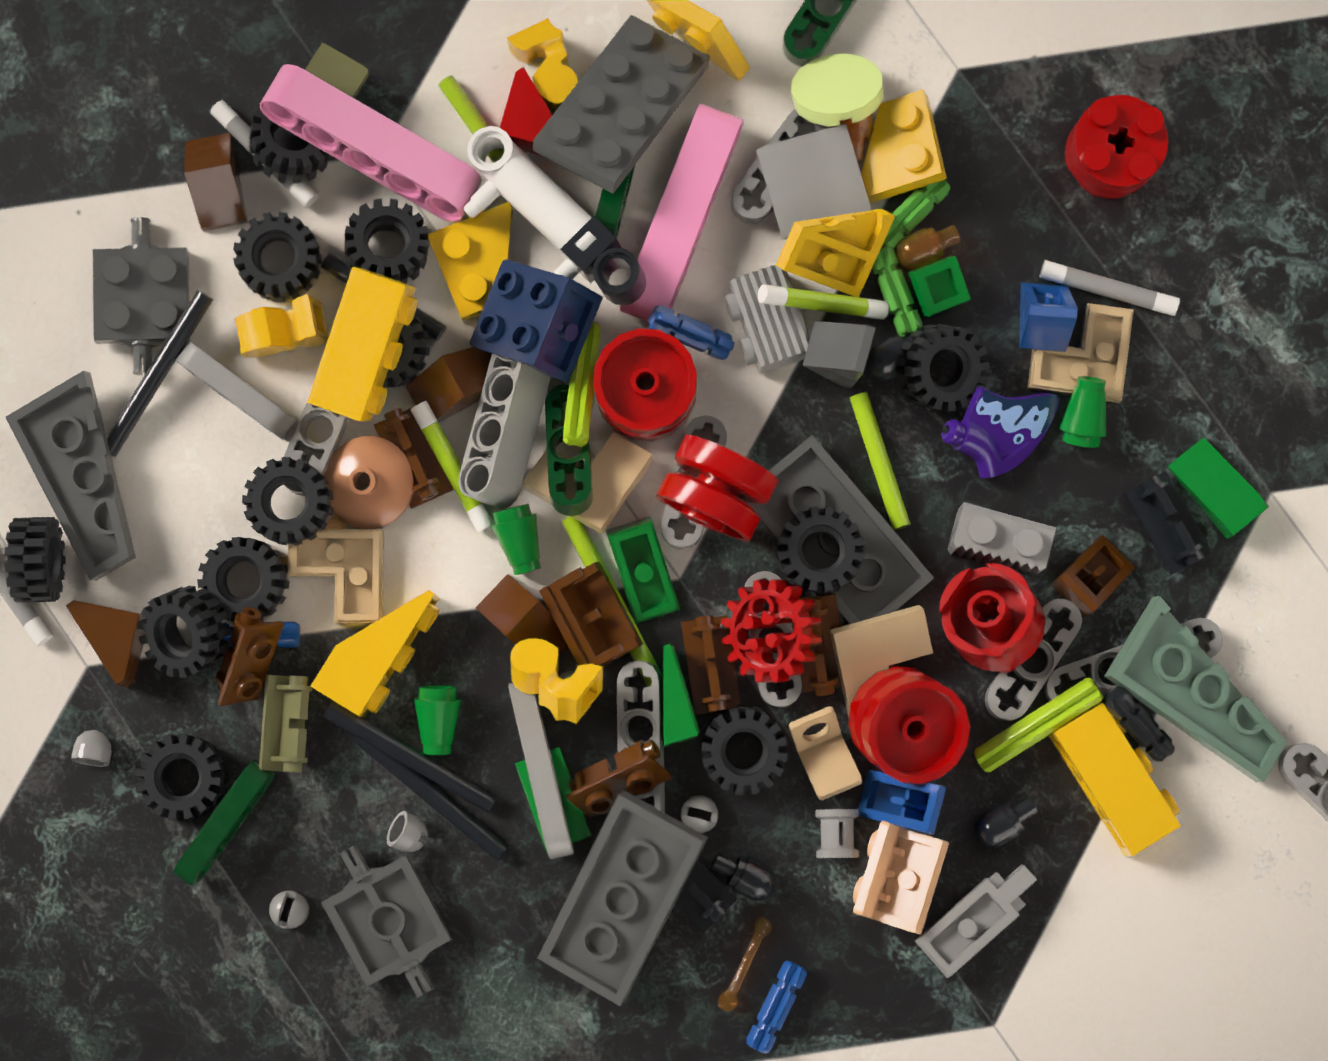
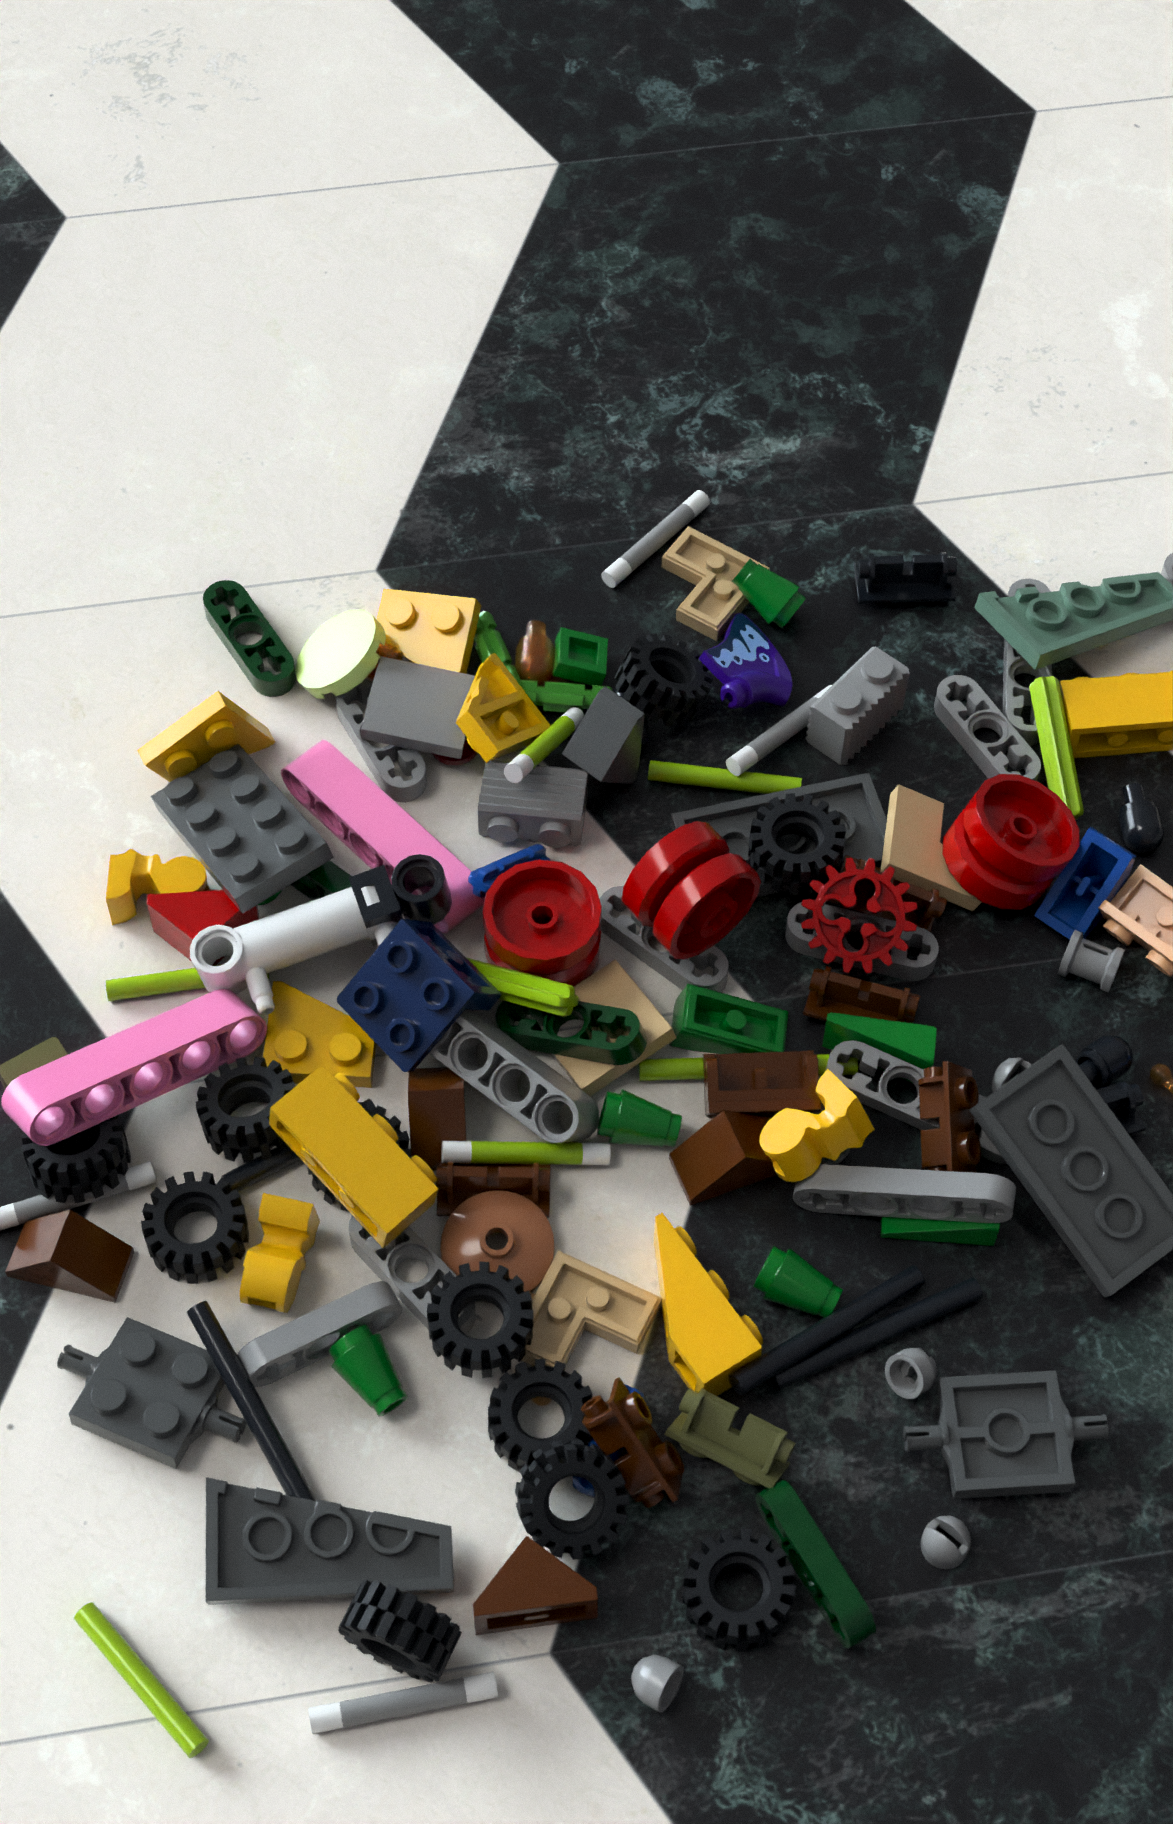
camera: 70 degrees left, 25 degrees down
(225, 439) = (368, 1369): none -> green cone
(748, 778) = (982, 983): black tyre -> none
(825, 754) = (1007, 940): tan bracket -> none
(945, 486) = (772, 738): none -> light grey bar
(997, 593) = (935, 732): red brick -> none
(1046, 316) = (661, 583): blue slope -> none
(1093, 576) = (931, 656): reddish brown slope -> none
(1135, 128) = (529, 472): red brick -> none
(1139, 724) = (1073, 665): black axle -> none
(1217, 488) = (898, 530): green slope -> none

